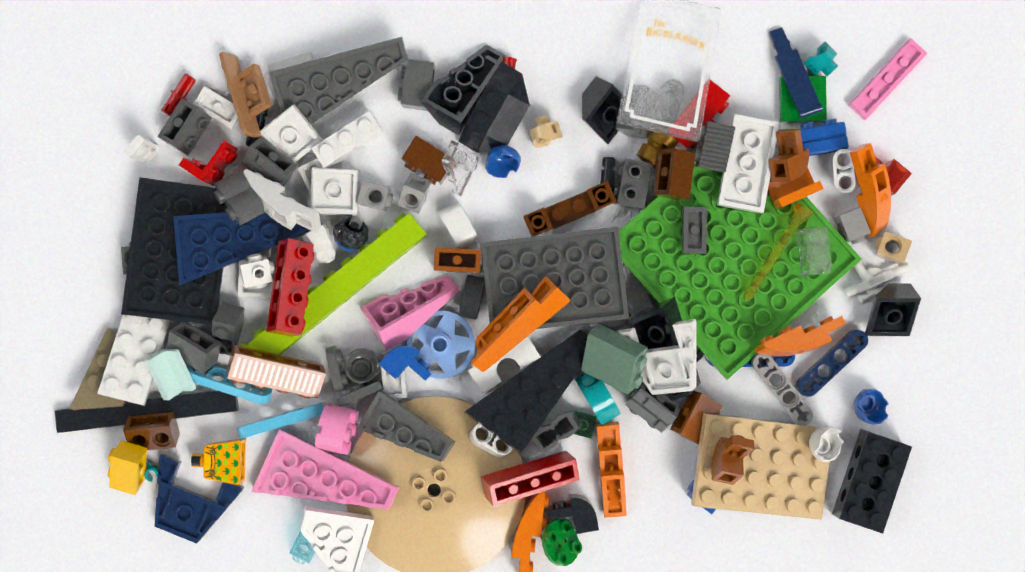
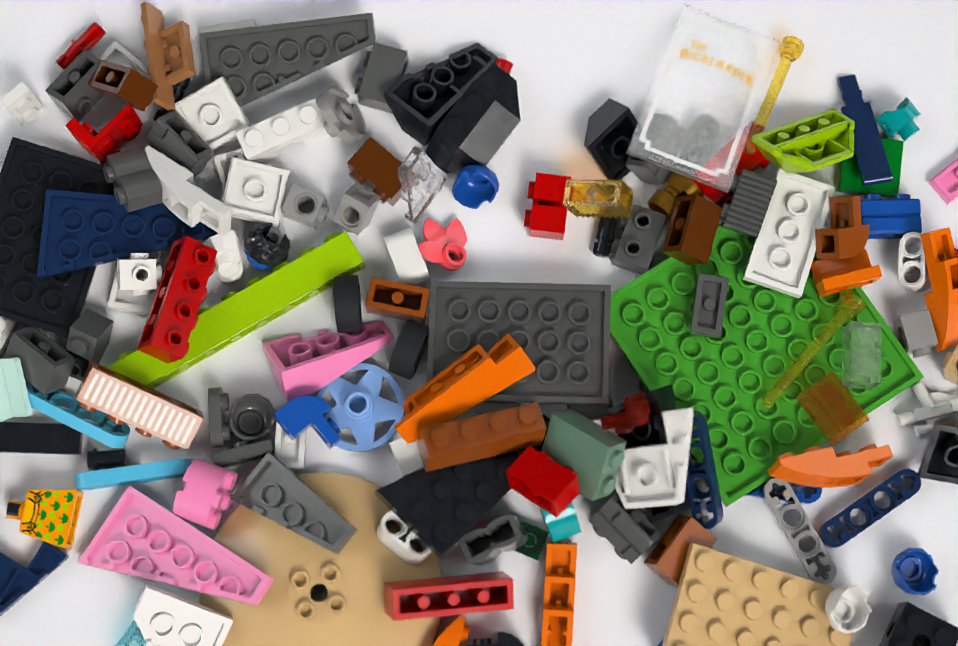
camera: 10 degrees right, 10 degrees down
(217, 125) = (123, 85): none -> reddish brown brick
(258, 412) = (106, 459): none -> black pin
(391, 123) = (340, 116): none -> light grey plate
(419, 268) = (347, 303): none -> black tyre
(483, 207) = (441, 241): none -> coral plate
(537, 358) = (481, 436): none -> dark orange brick
(545, 131) = (536, 155): tan piece -> none
(560, 157) = (548, 213): none -> red piece
(569, 209) = (553, 260): reddish brown slope -> none
(588, 384) = (543, 481): none -> red brick
(598, 159) = (598, 198): none -> clear yellow brick
(647, 330) = (635, 415): none -> clear red bracket
(707, 356) = (706, 470): none -> dark blue beam
(728, 458) = (715, 601): dark orange brick -> none
(730, 16) = (790, 50): none -> clear yellow piece
(756, 90) = (808, 142): none -> lime wedge
(797, 295) = (832, 408): none -> clear orange plate

